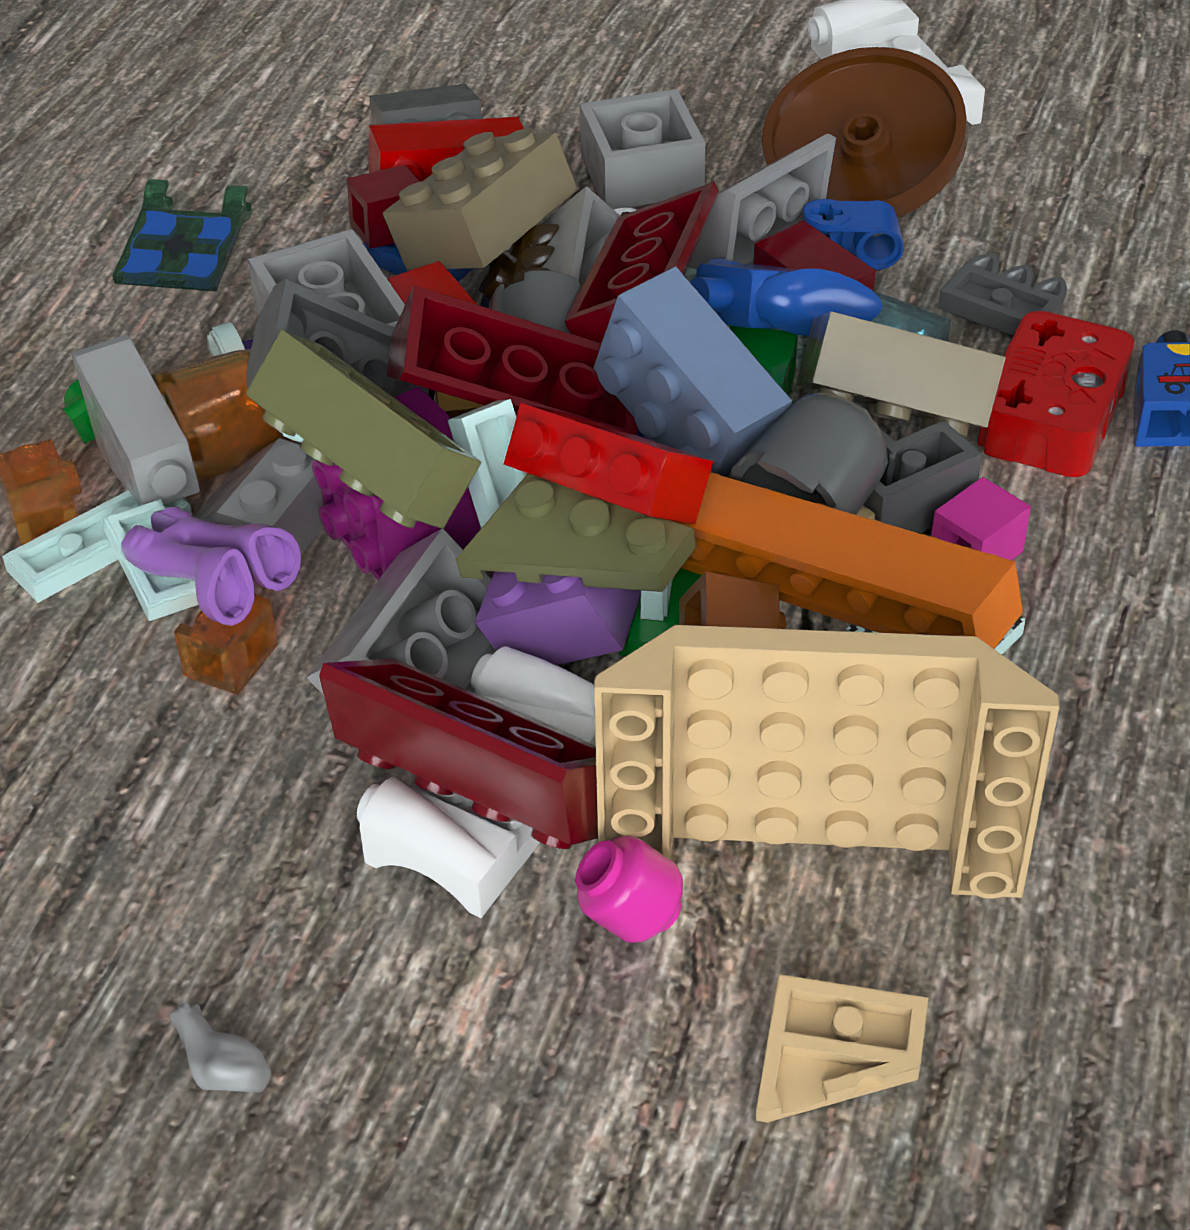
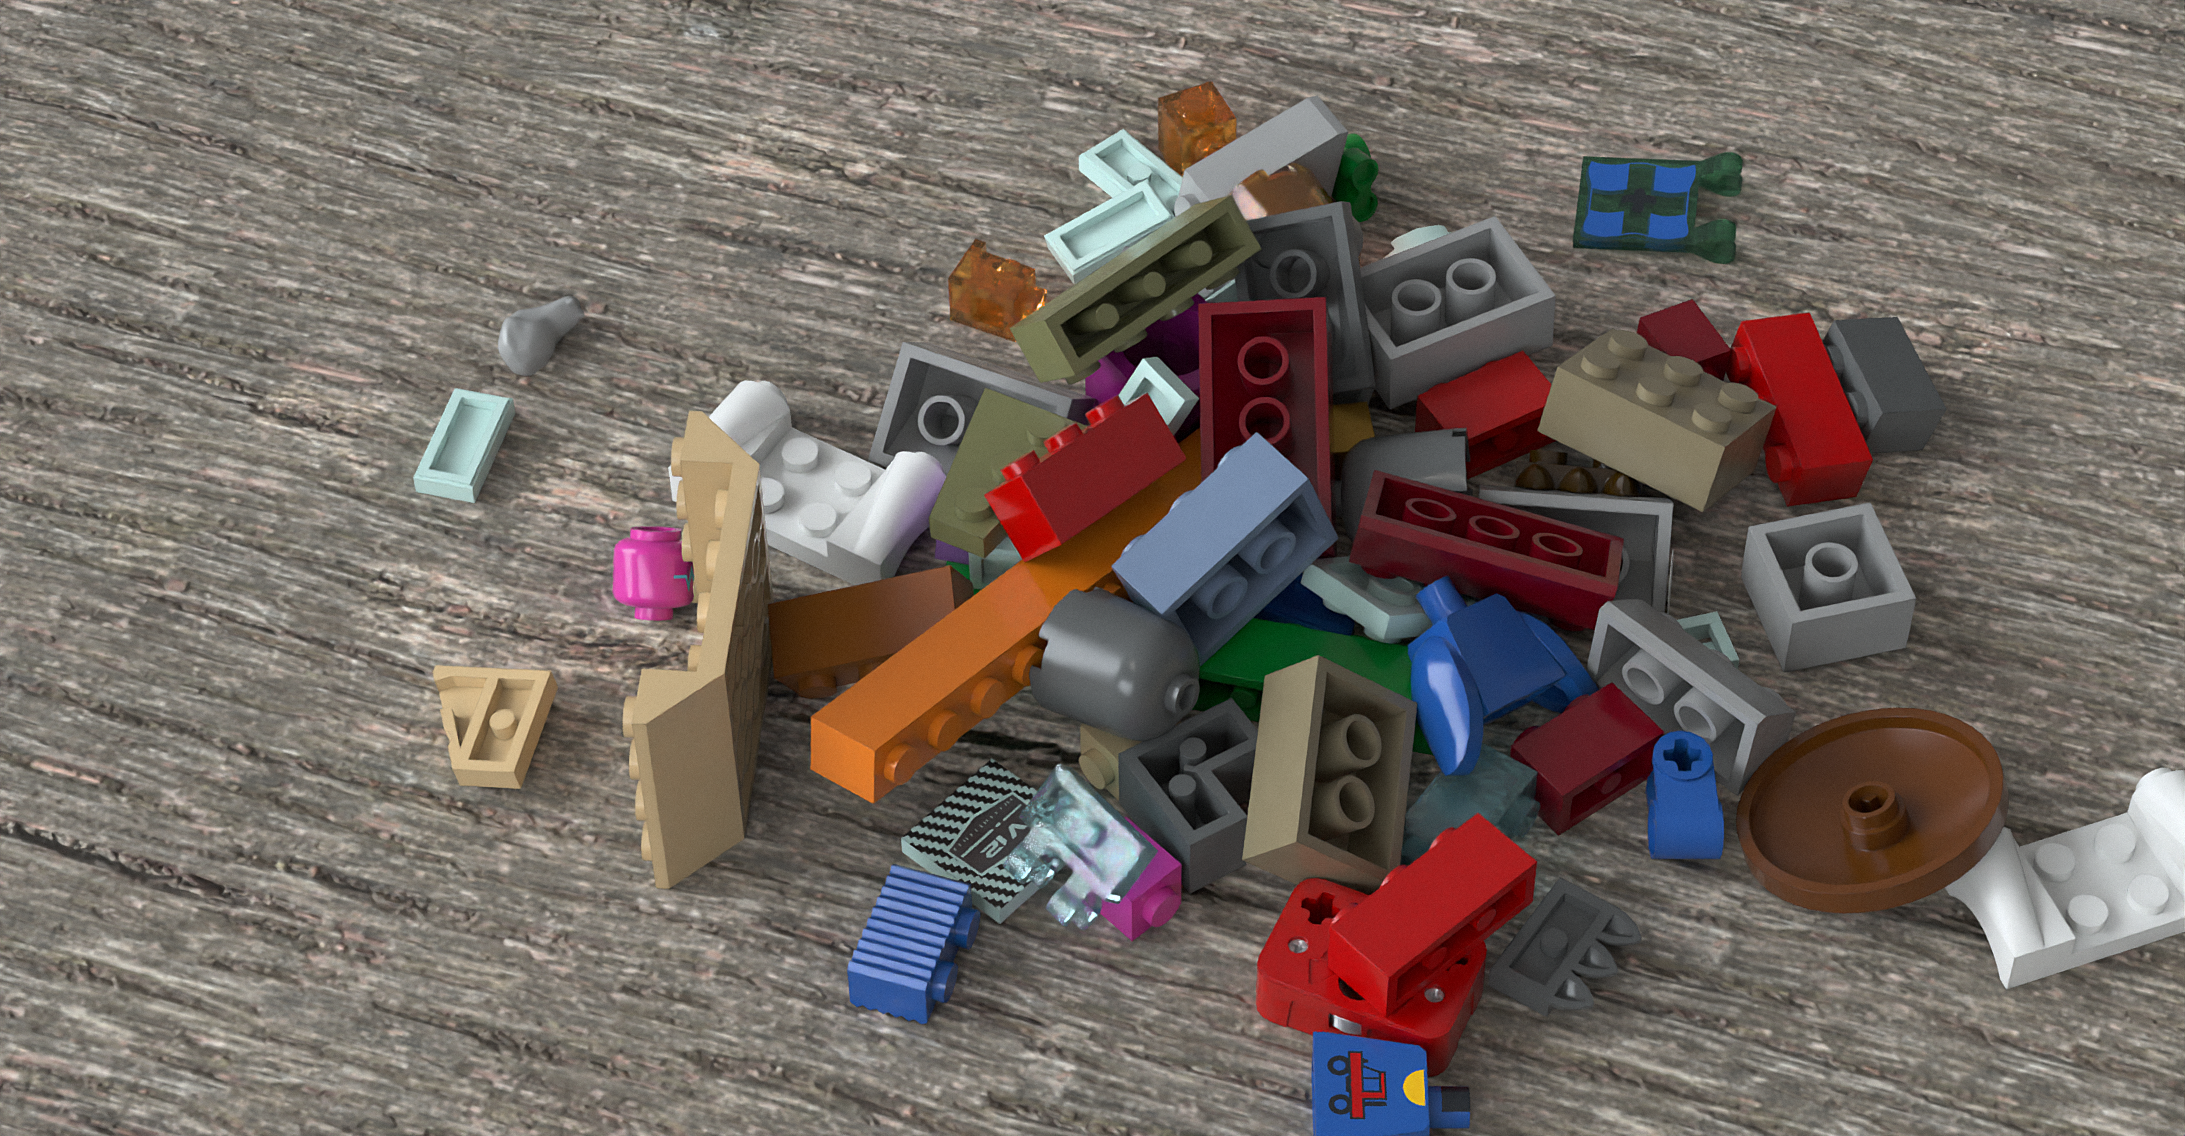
camera: 90 degrees right, 5 degrees up
(216, 557) = (1047, 242): medium lavender piece -> none
(390, 1123) = (464, 445): none -> light aqua tile
(465, 747) = (796, 394): dark red slope -> none
(992, 507) = (1089, 836): none -> clear light blue plate
(1035, 316) = (1430, 913): none -> red brick
(1093, 671) = (912, 943): none -> blue brick

